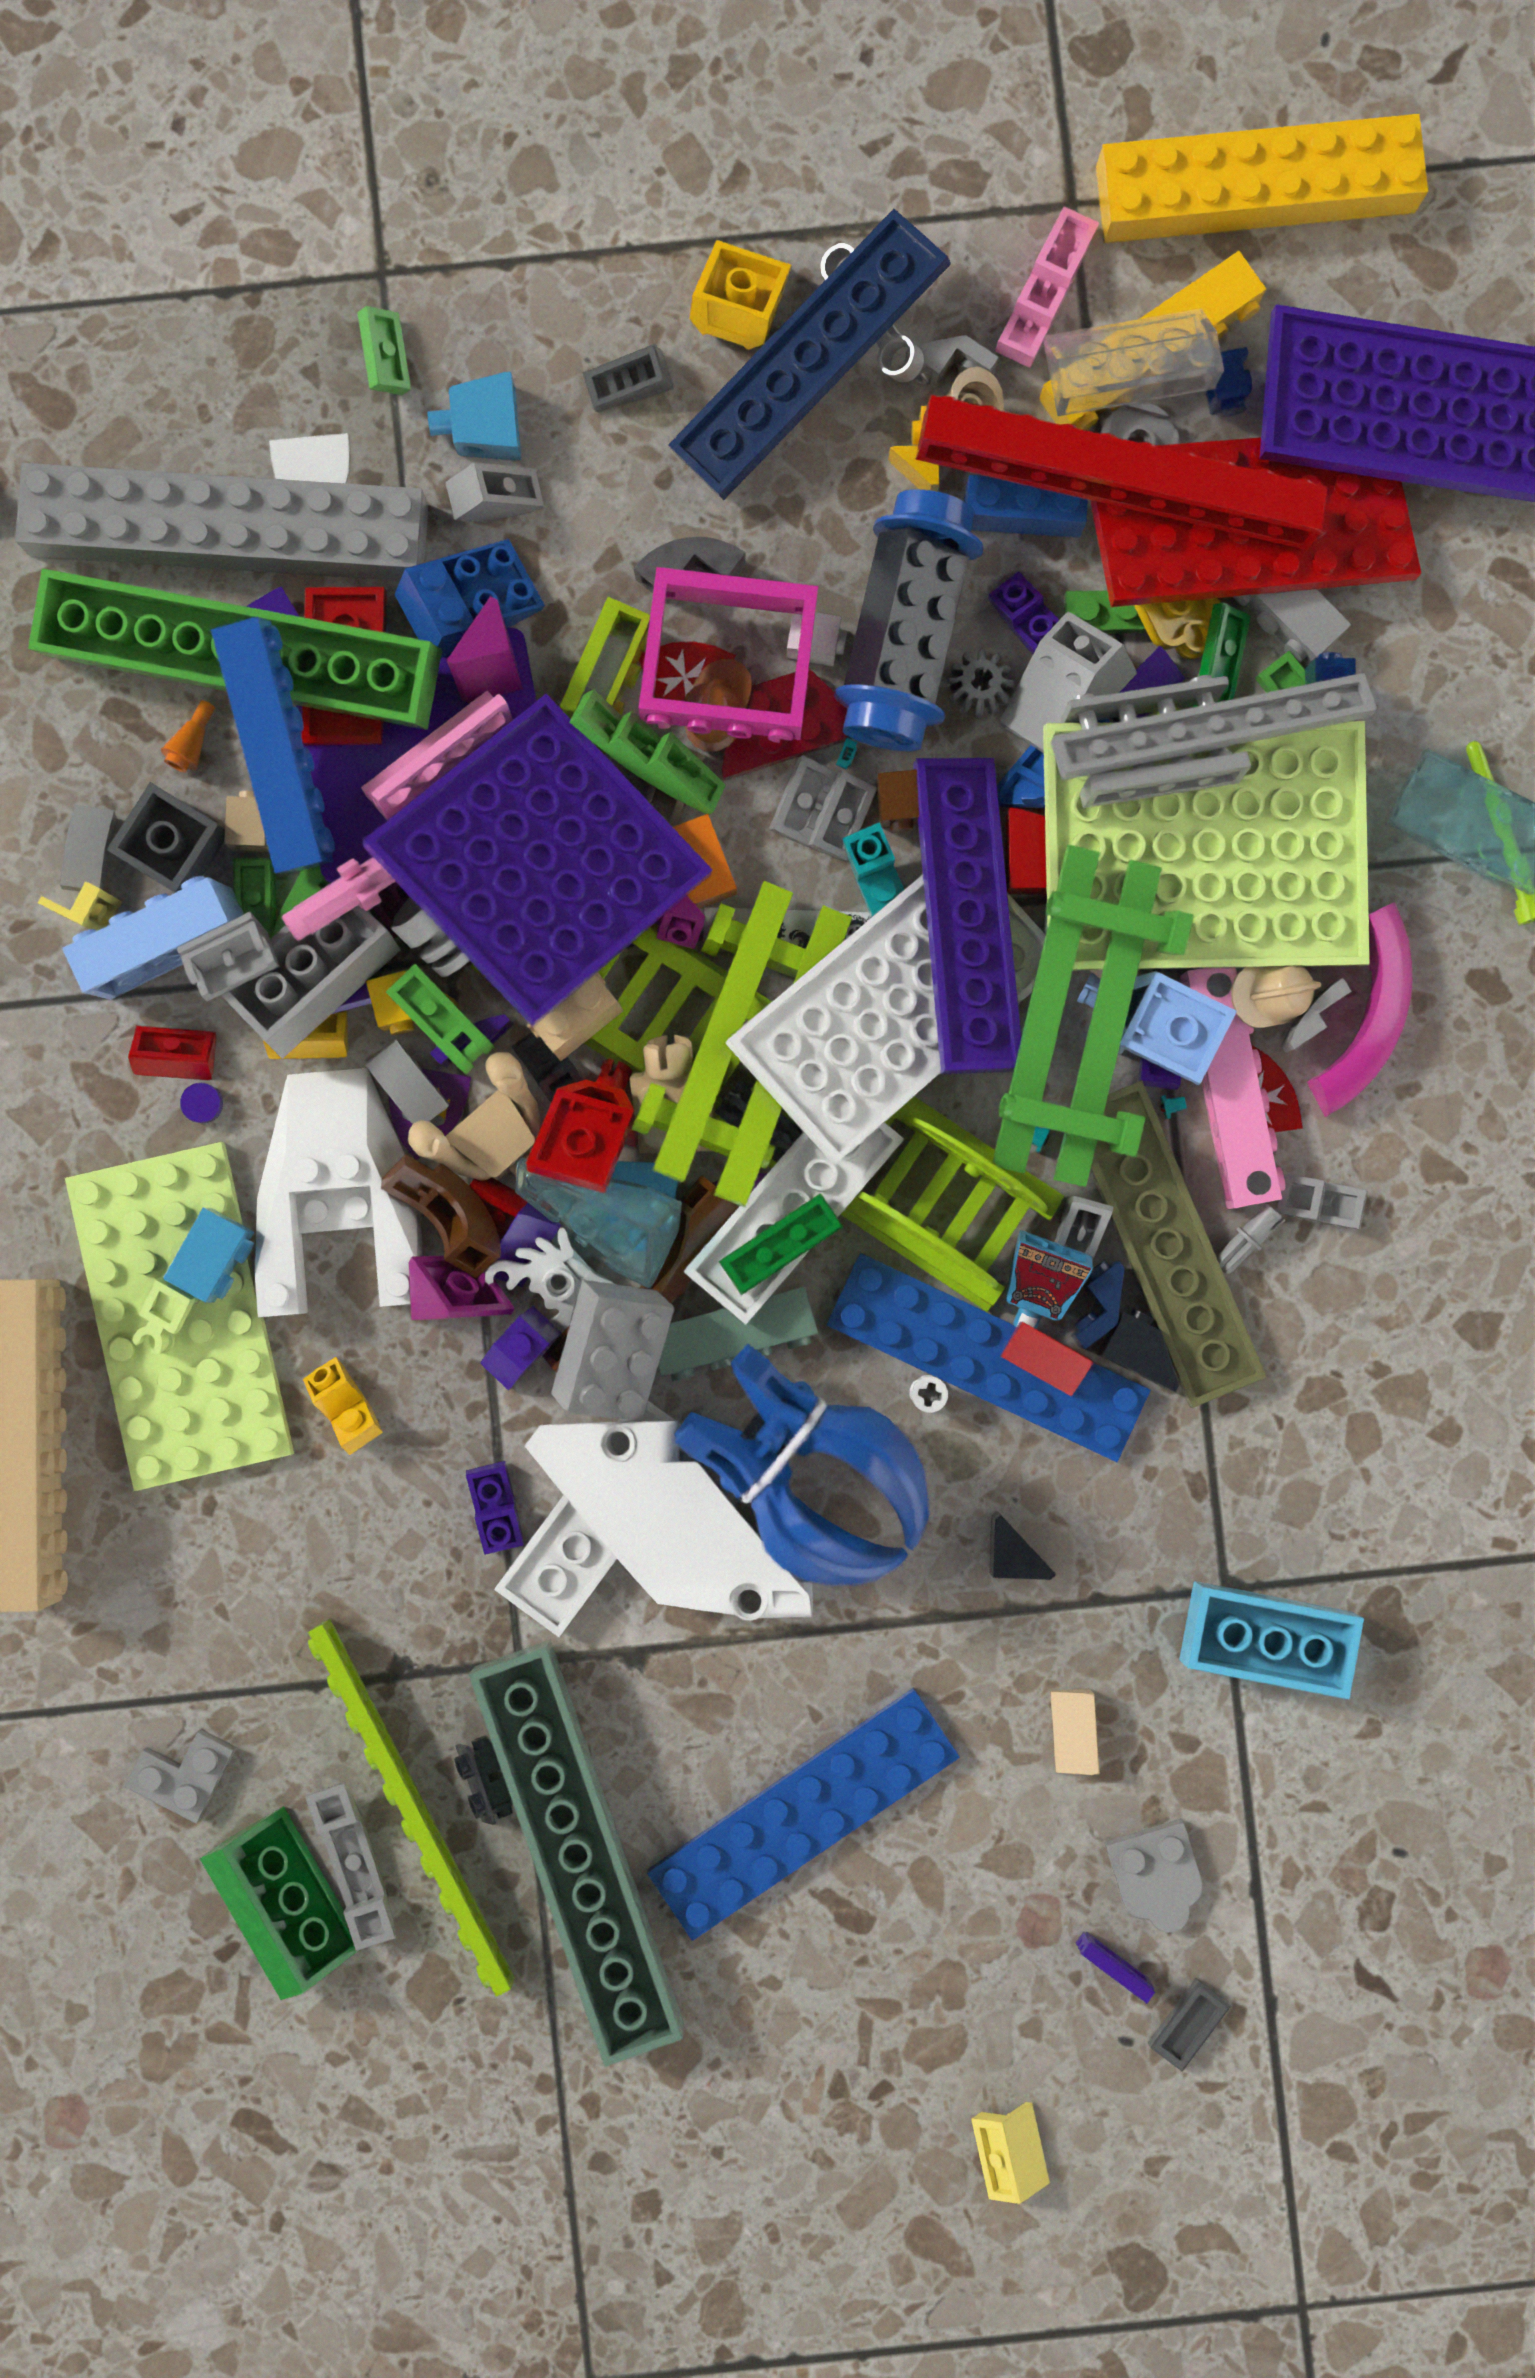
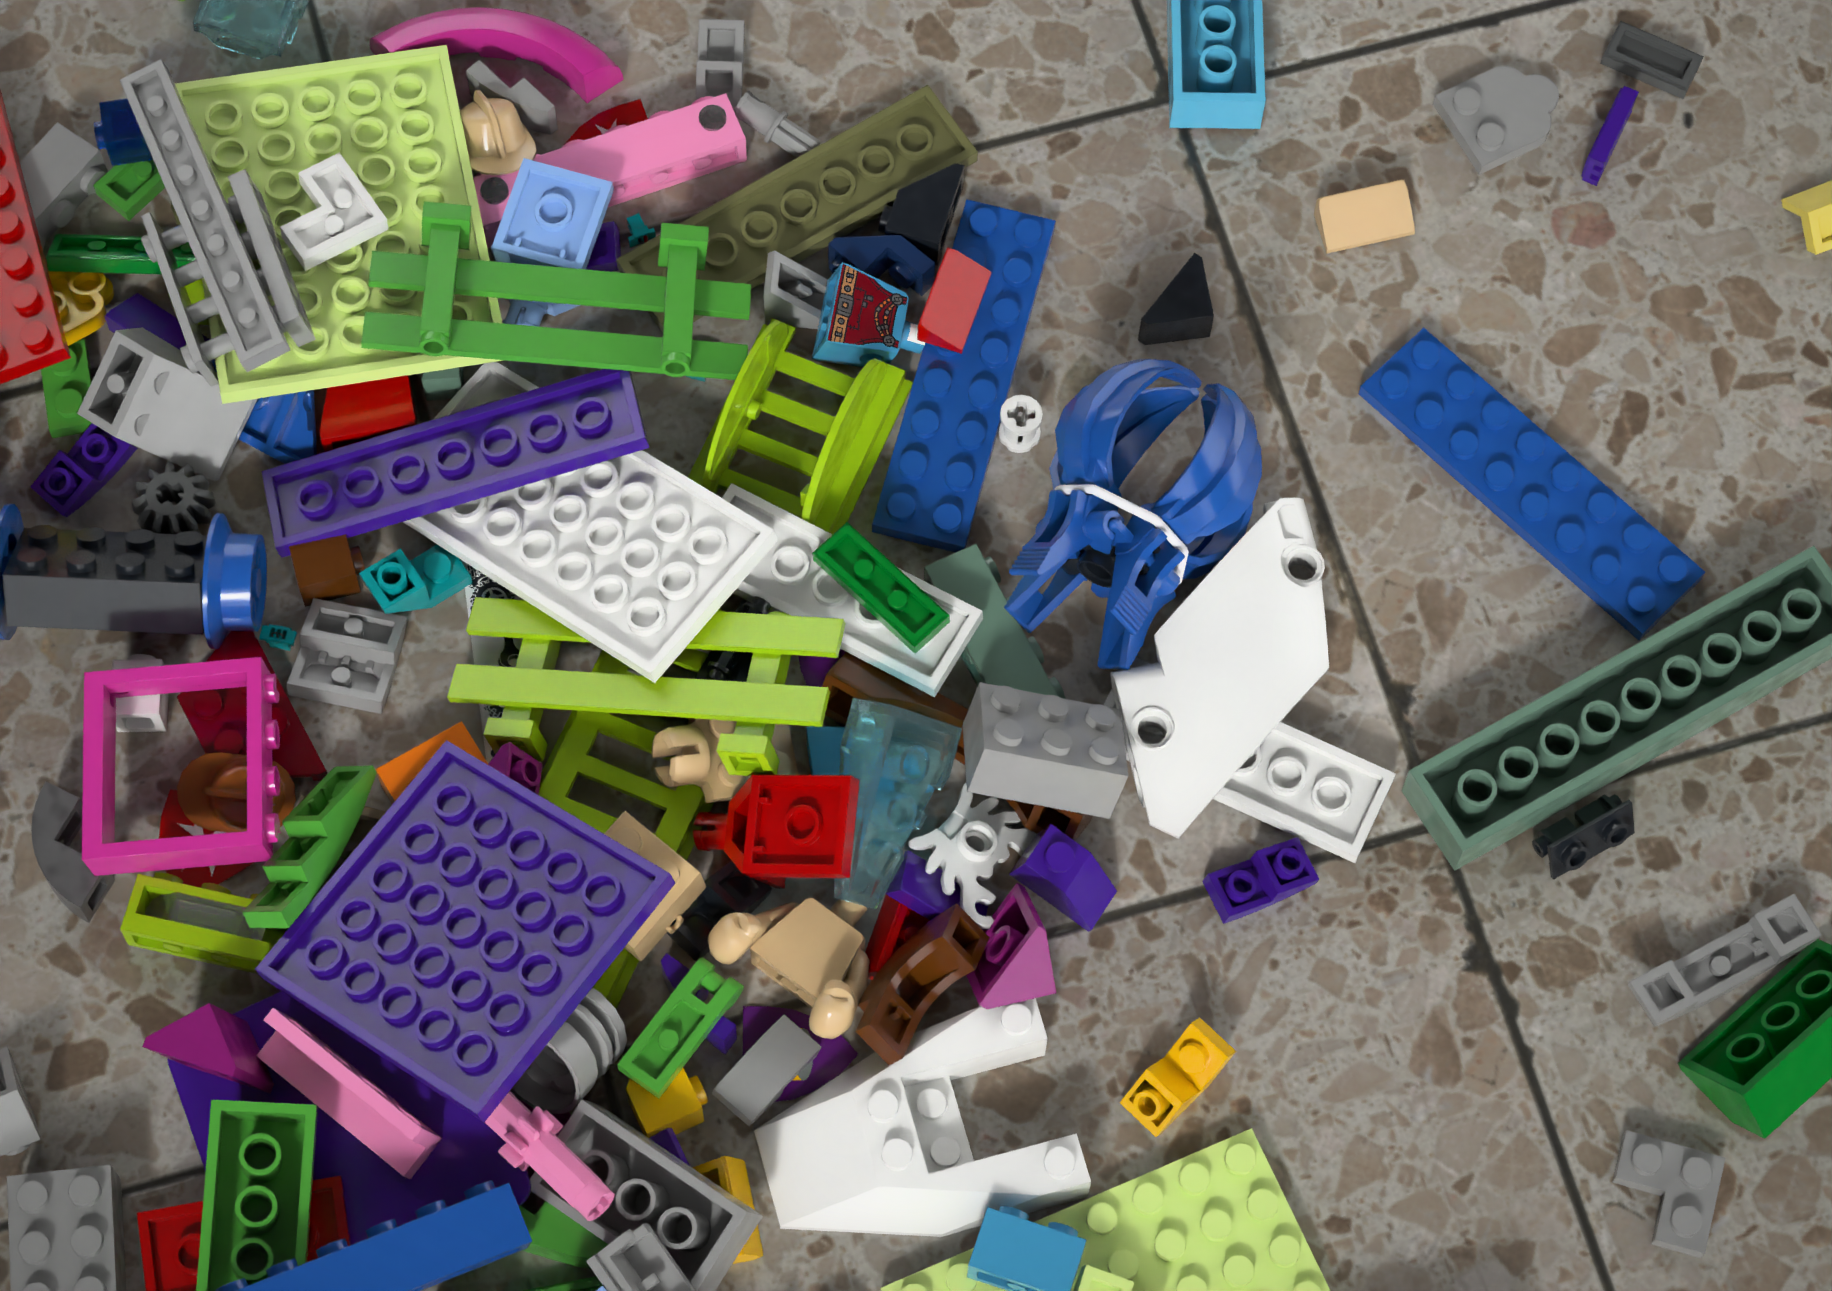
camera: 100 degrees left, 20 degrees down
(417, 1821) = (1622, 920): lime plate -> none
(449, 592) = (137, 1110): blue slope -> none
(1196, 847) = (342, 218): none -> white plate

